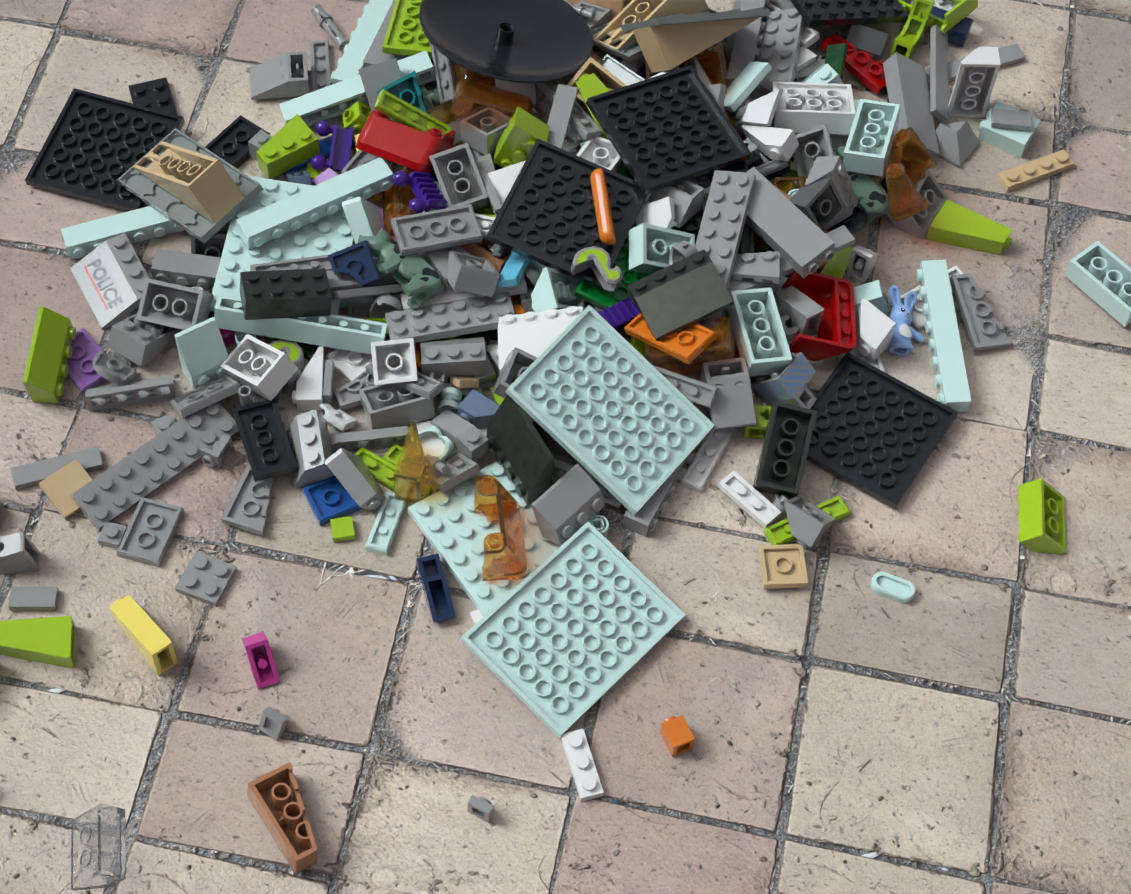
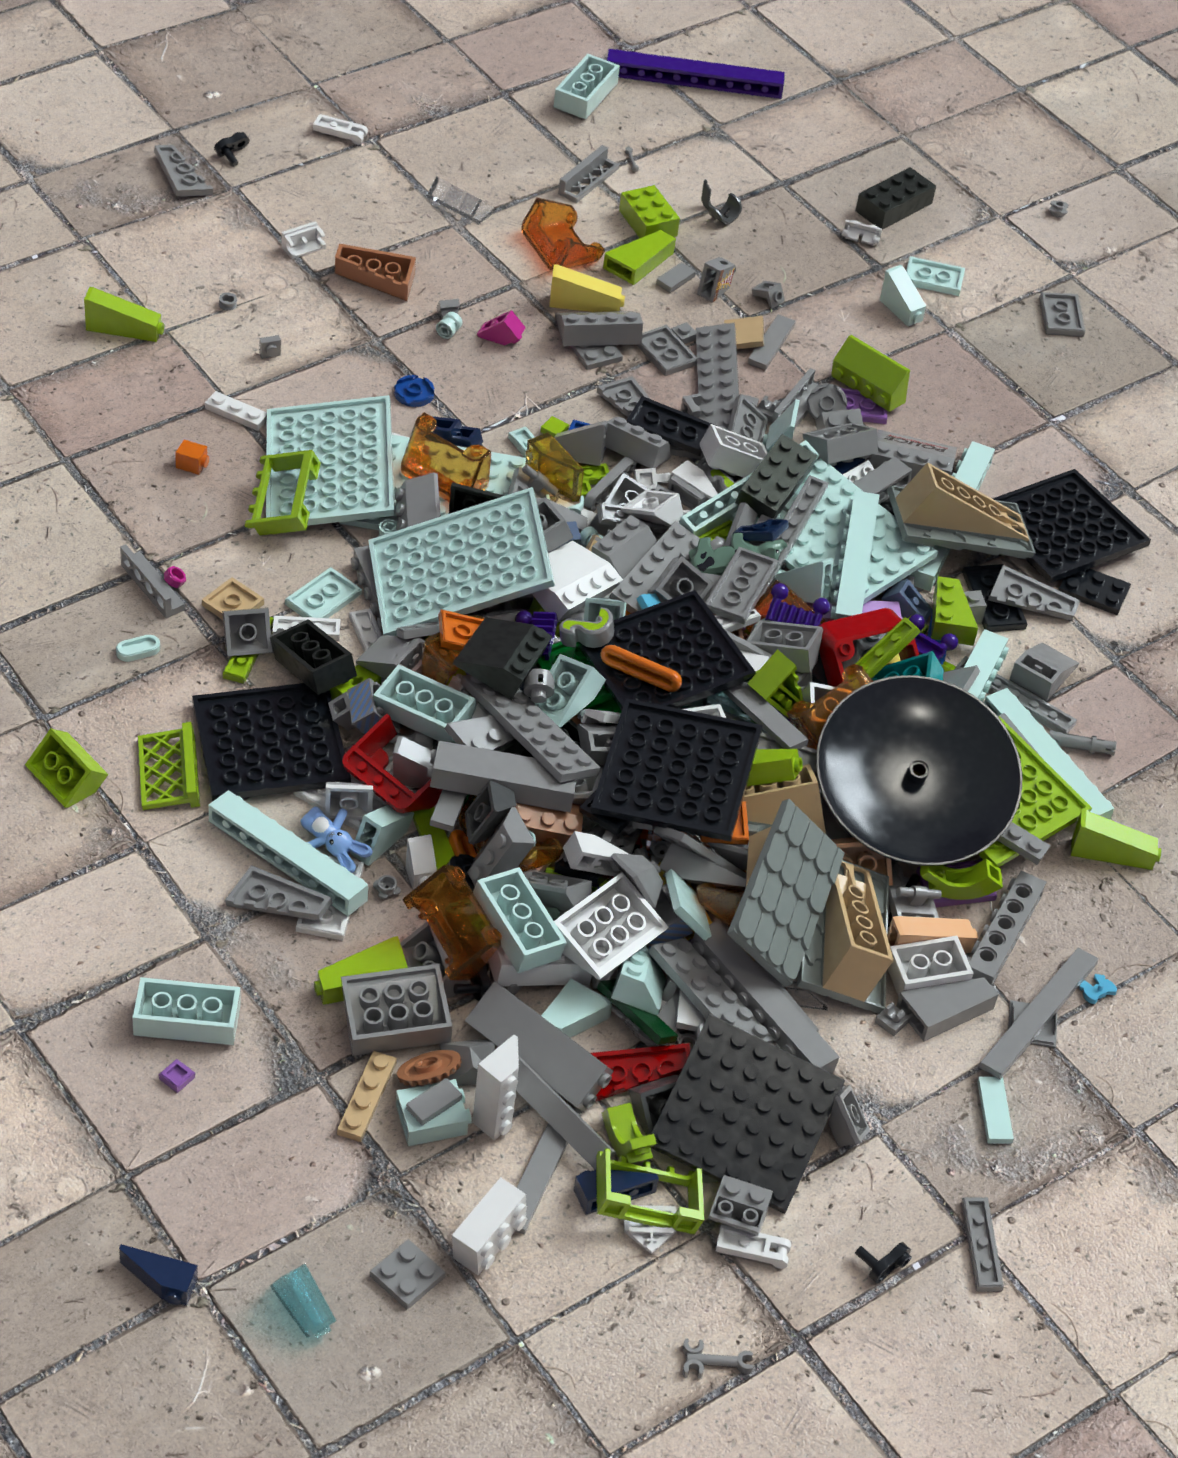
camera: 130 degrees right, 10 degrees down
(79, 718) = (552, 236): none -> clear orange windscreen
(155, 408) = (767, 407): none -> light grey tile
(176, 591) = (600, 328): none -> light grey slope
(210, 124) = (1027, 593): none -> light grey wing
(297, 702) = (449, 325): none -> light aqua wheel
(407, 662) = (414, 391): none -> blue tile
(683, 599) = (299, 514): none -> lime hinge
(703, 522) = (323, 595): none -> light aqua tile
(807, 624) = (175, 577): none -> dark pink tile
(828, 636) = (151, 582): none -> light grey fence
(892, 270) = (386, 886): none -> light grey plate
(953, 450) = (187, 761): none -> lime fence
(980, 182) = (396, 1009): none -> light grey slope
(992, 131) = (429, 1067): none -> nougat gear
(1045, 43) = (489, 1226): none -> white brick
(1104, 72) = (407, 1274): none -> light grey plate

